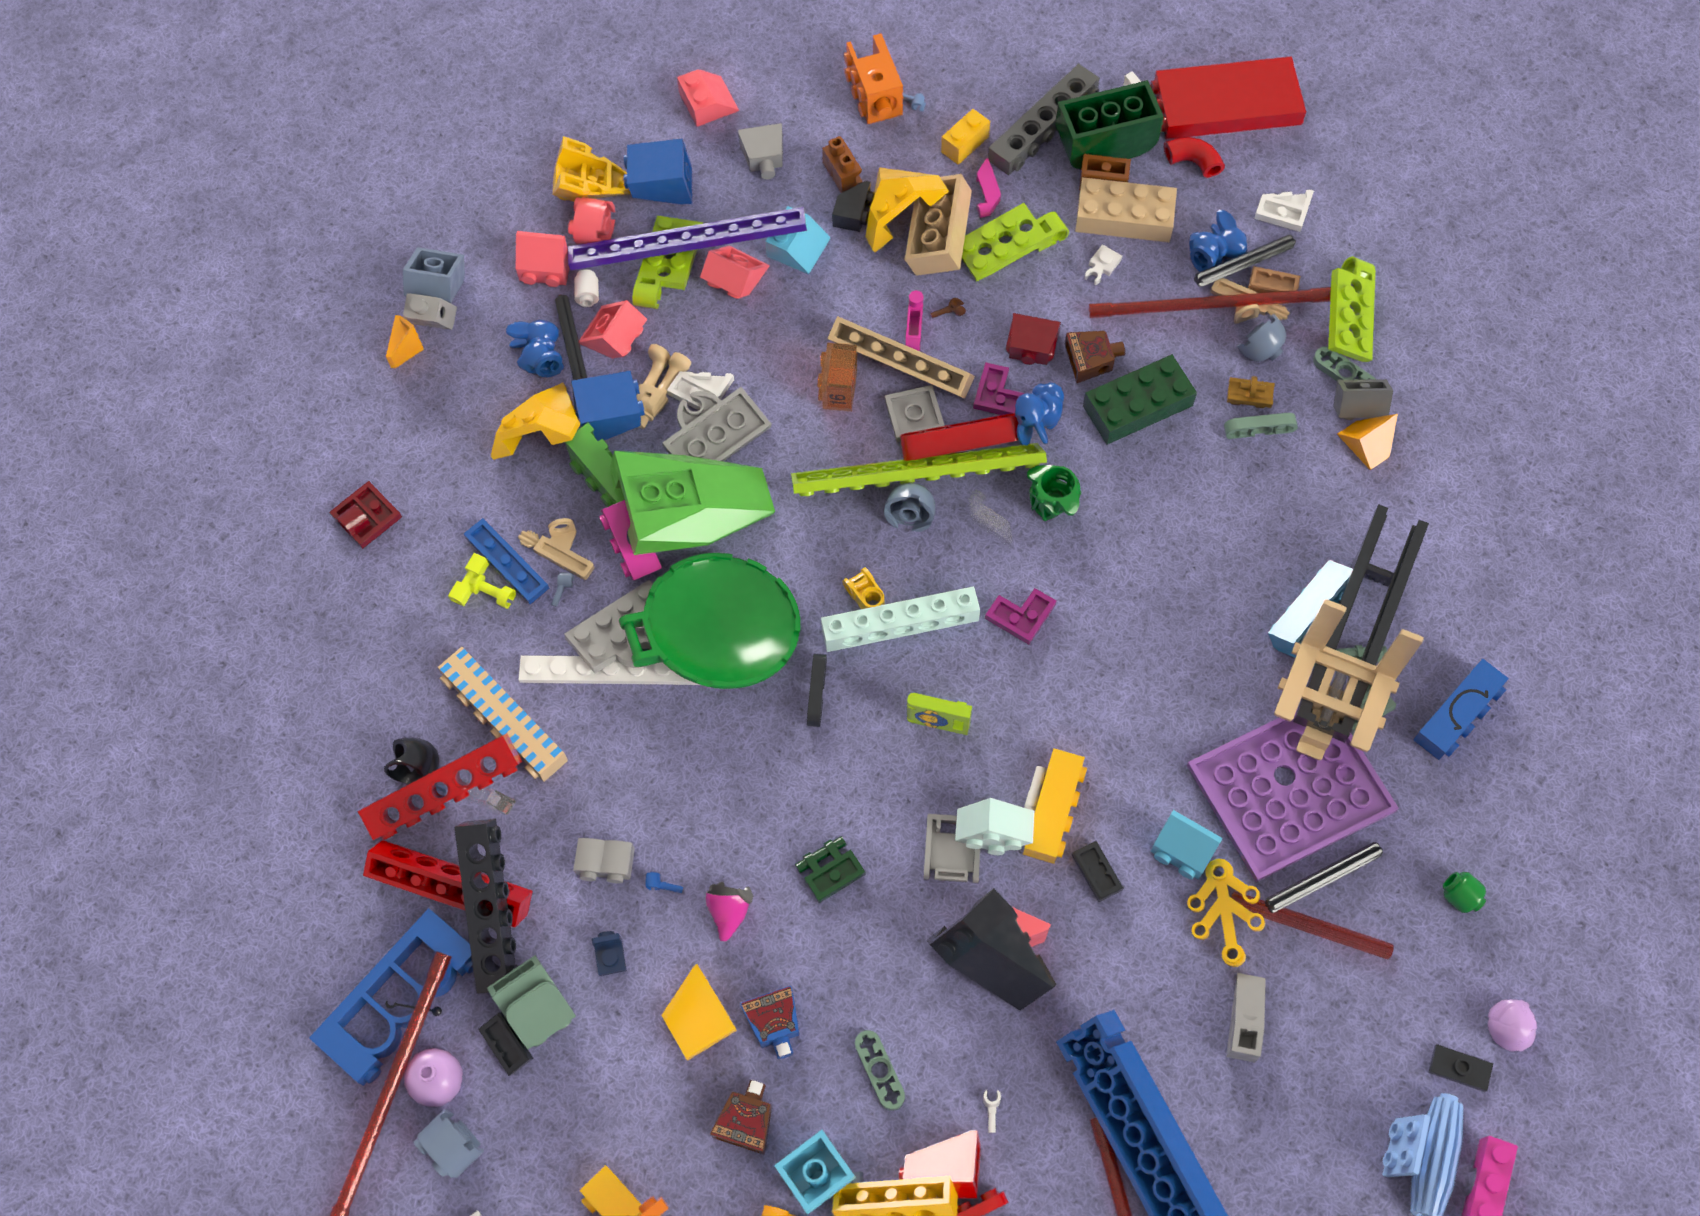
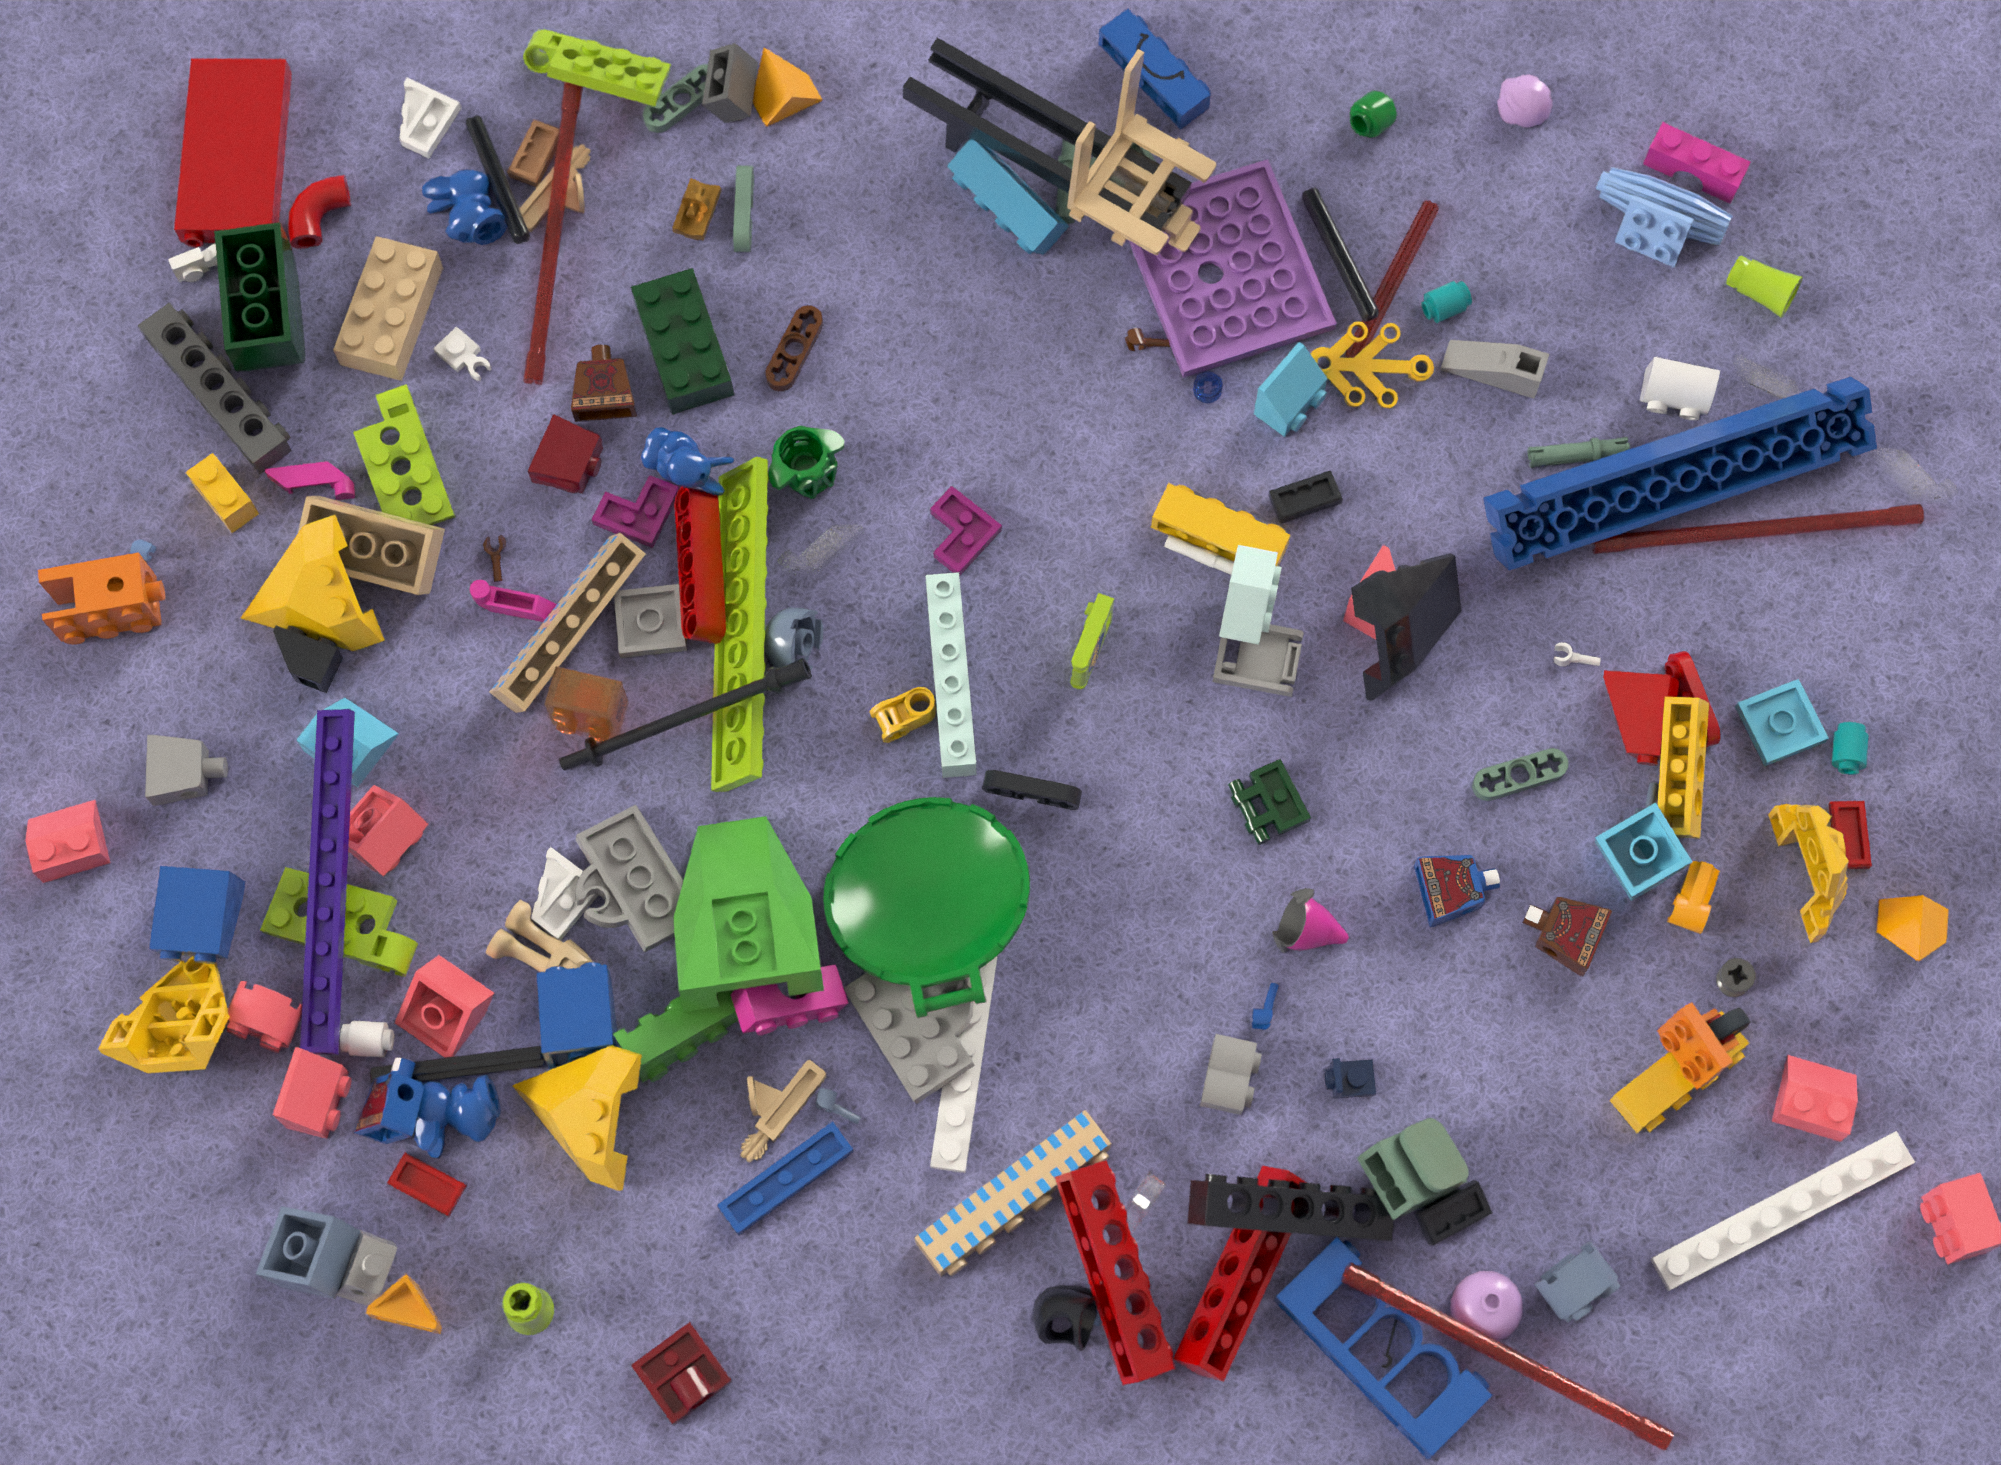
camera: 85 degrees left, 5 degrees up
(405, 411) = (538, 1314): none -> lime plant
(475, 581) = (811, 1223): neon yellow bar -> none
(489, 343) = (426, 1184): none -> red tile
(529, 306) = (391, 1105): none -> blue torso
(697, 1015) = (1439, 976): yellow slope -> none
(841, 164) = (240, 657): dark orange hips -> none
(864, 485) = (774, 680): none -> black bar
(1105, 168) = (325, 322): dark orange brick -> none
(1147, 469) = (796, 324): none -> reddish brown beam
(1175, 790) = (1215, 392): none -> clear blue bush
(1185, 1111) = (1576, 452): none -> sand green pin
(1213, 724) = (1136, 337): none -> reddish brown hand
(1255, 1180) = (1679, 387): none -> white brick
(1264, 341) = (620, 173): sand blue cylinder -> none
(1299, 970) = (1446, 301): none -> teal brick
(1460, 1068) = (1566, 164): black plate -> none

